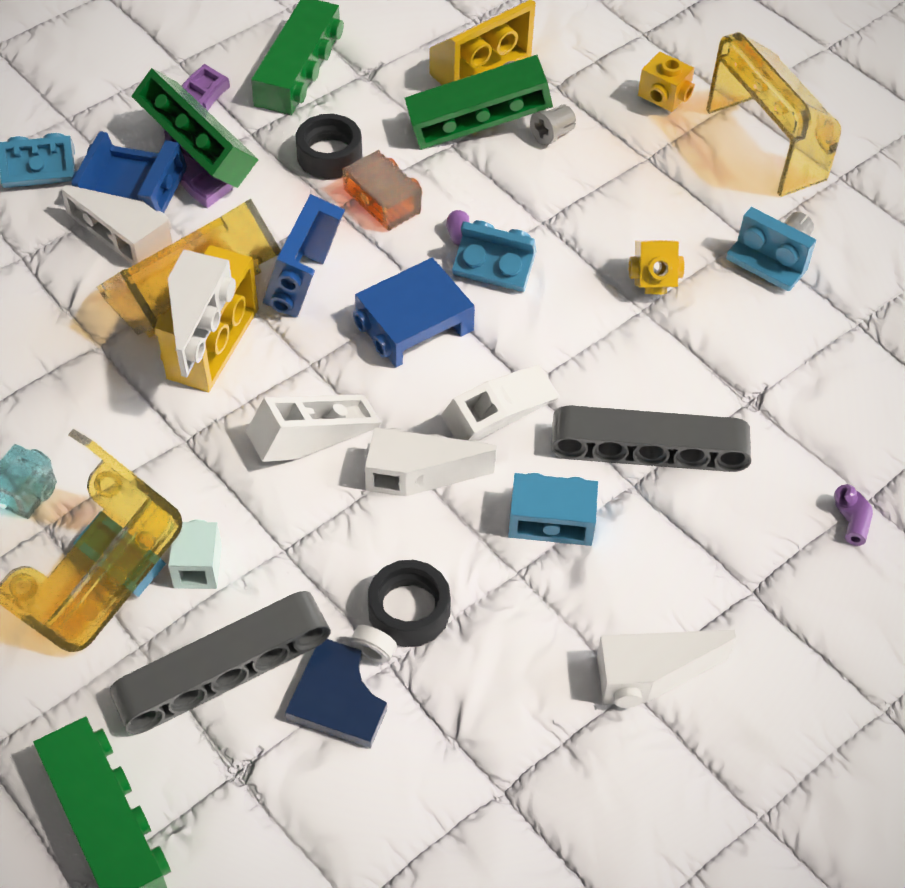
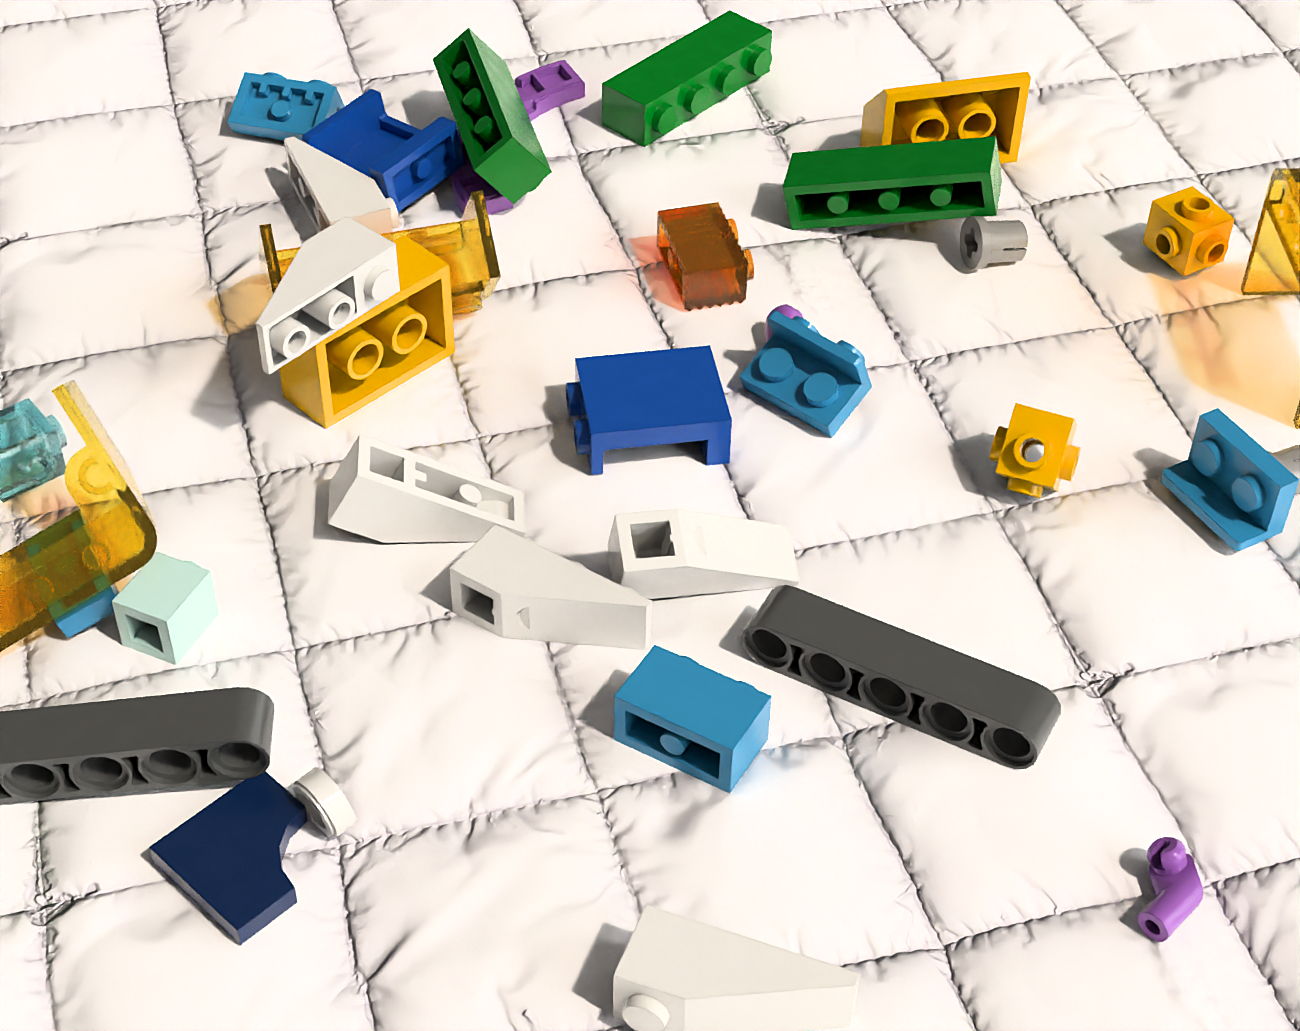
camera: 25 degrees right, 10 degrees down
(311, 238) = (549, 268): blue panel -> none
(328, 127) = (660, 167): black tyre -> none
(409, 574) = (409, 810): black tyre -> none

